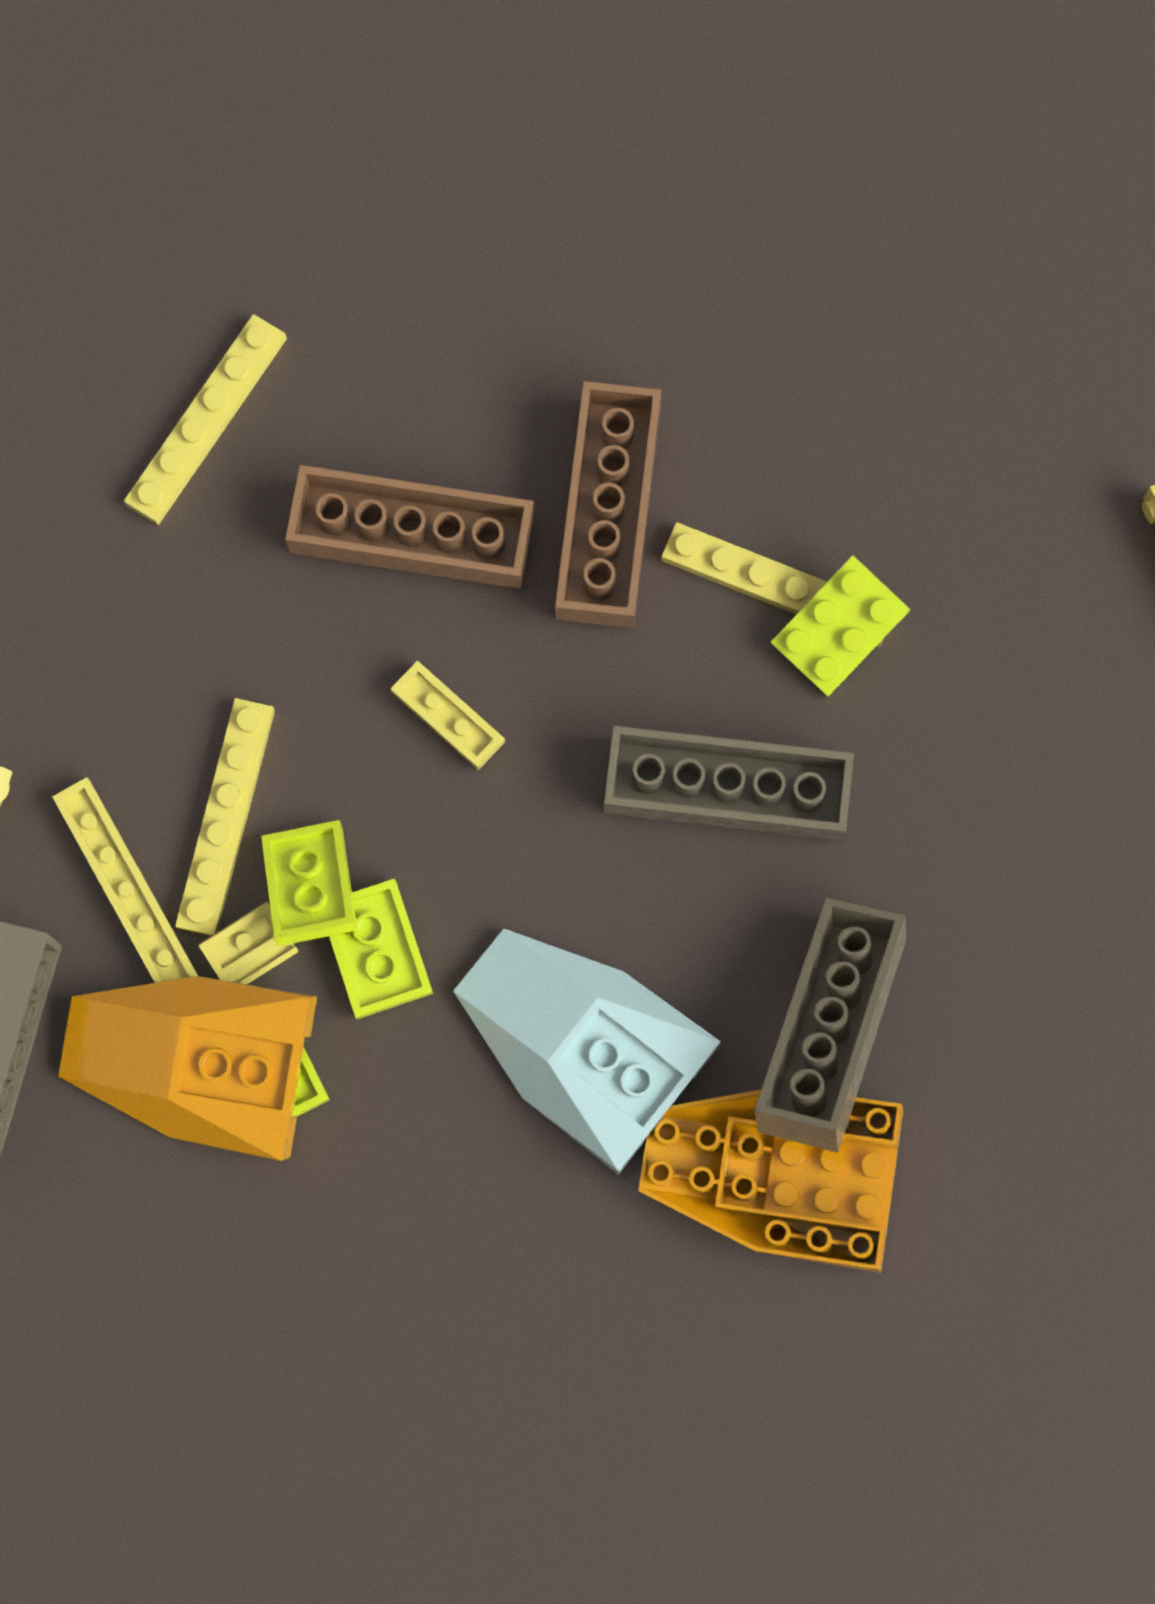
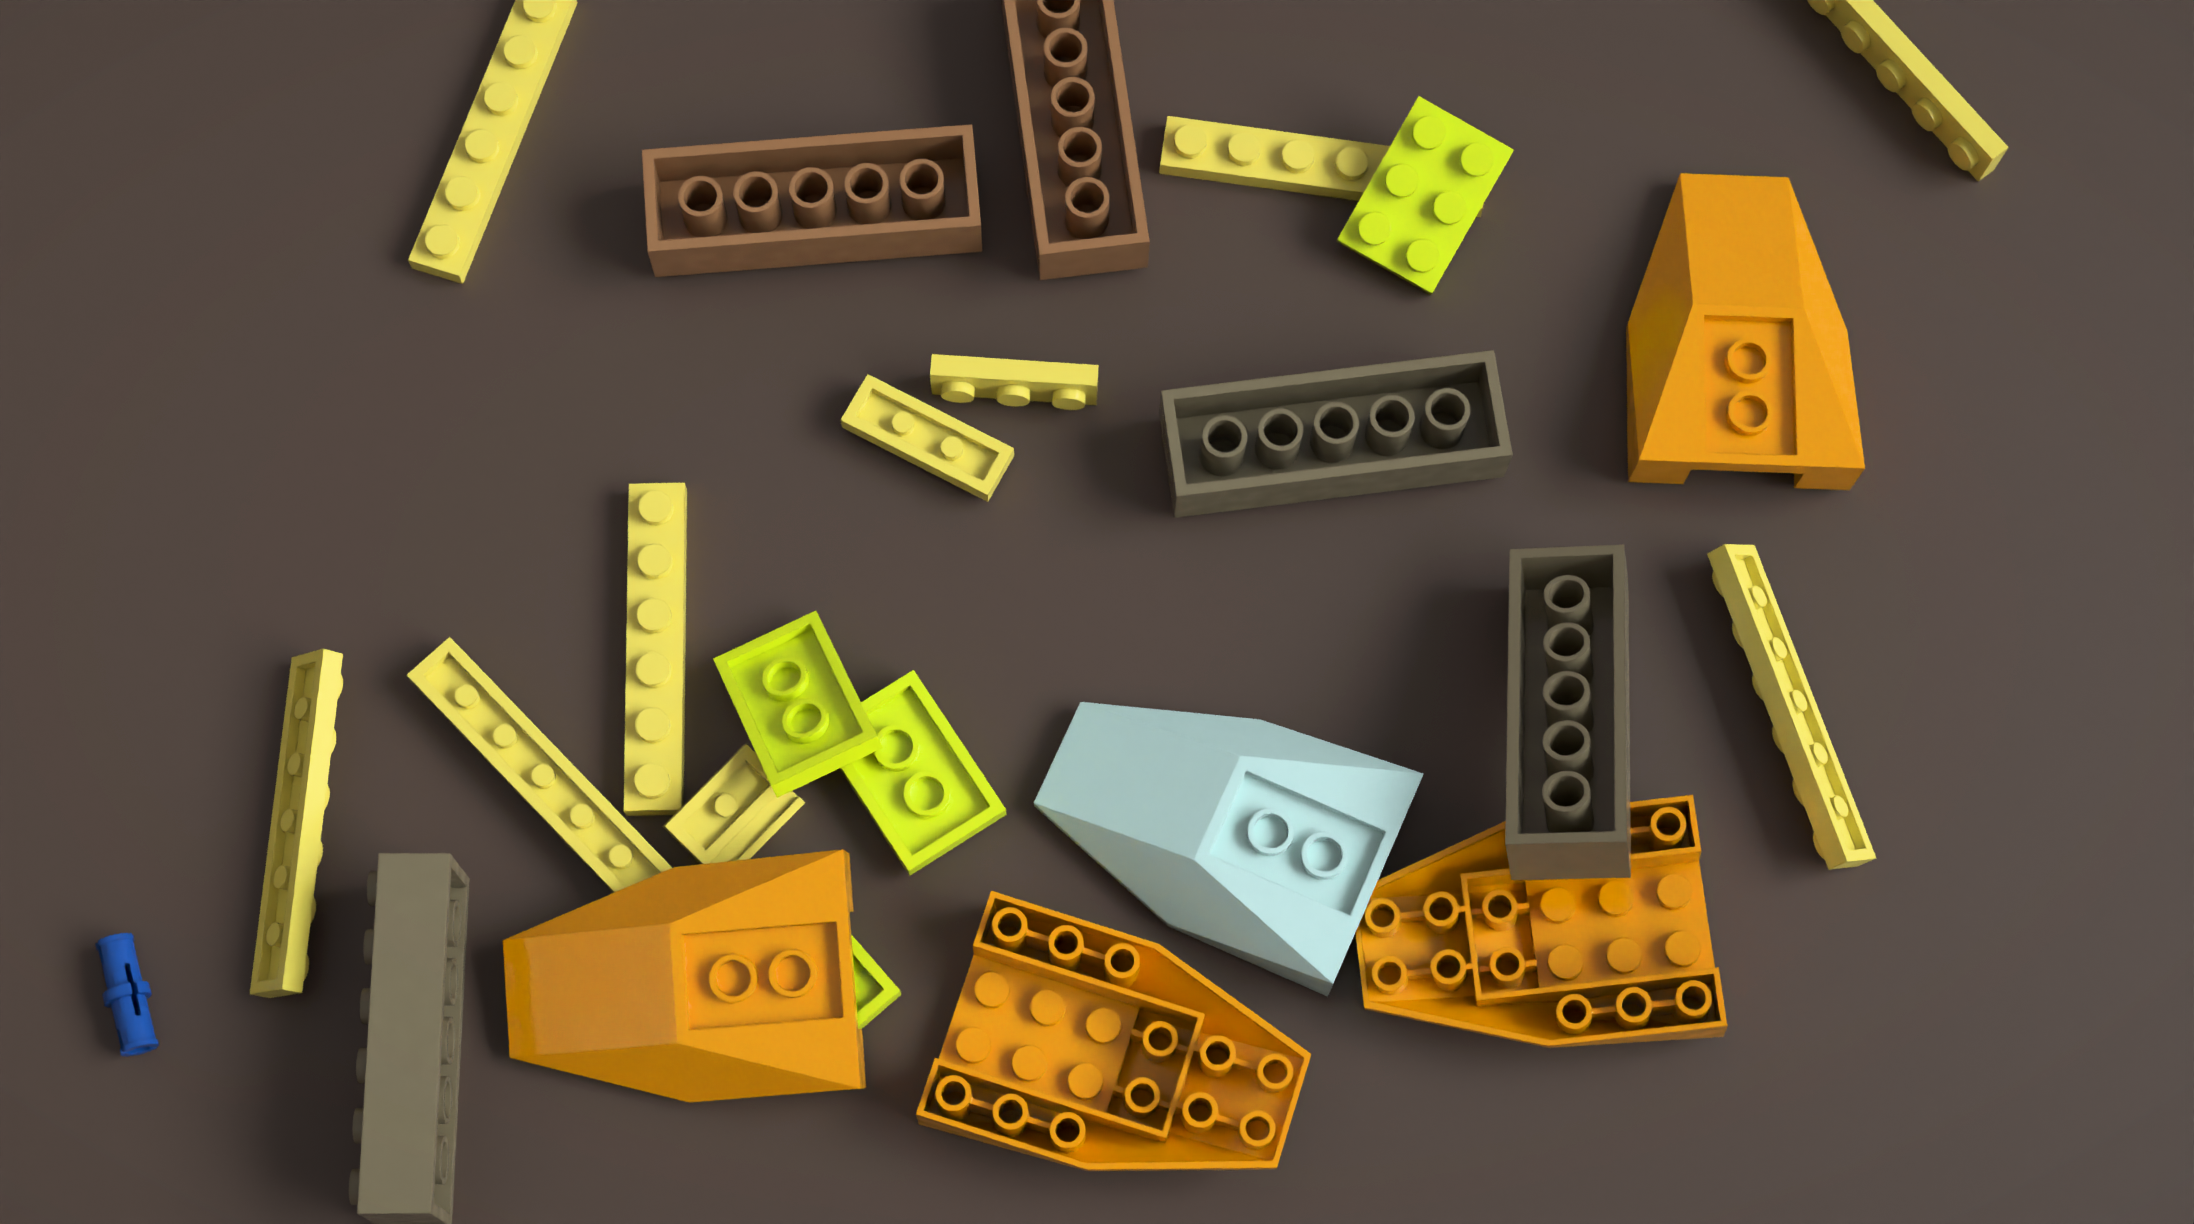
camera: 20 degrees left, 5 degrees down
(455, 1178) = (1107, 1053): none -> light orange wedge
(517, 690) = (1014, 381): none -> light yellow plate
(995, 1055) = (1791, 707): none -> light yellow plate
(1035, 785) = (1739, 344): none -> light orange wedge

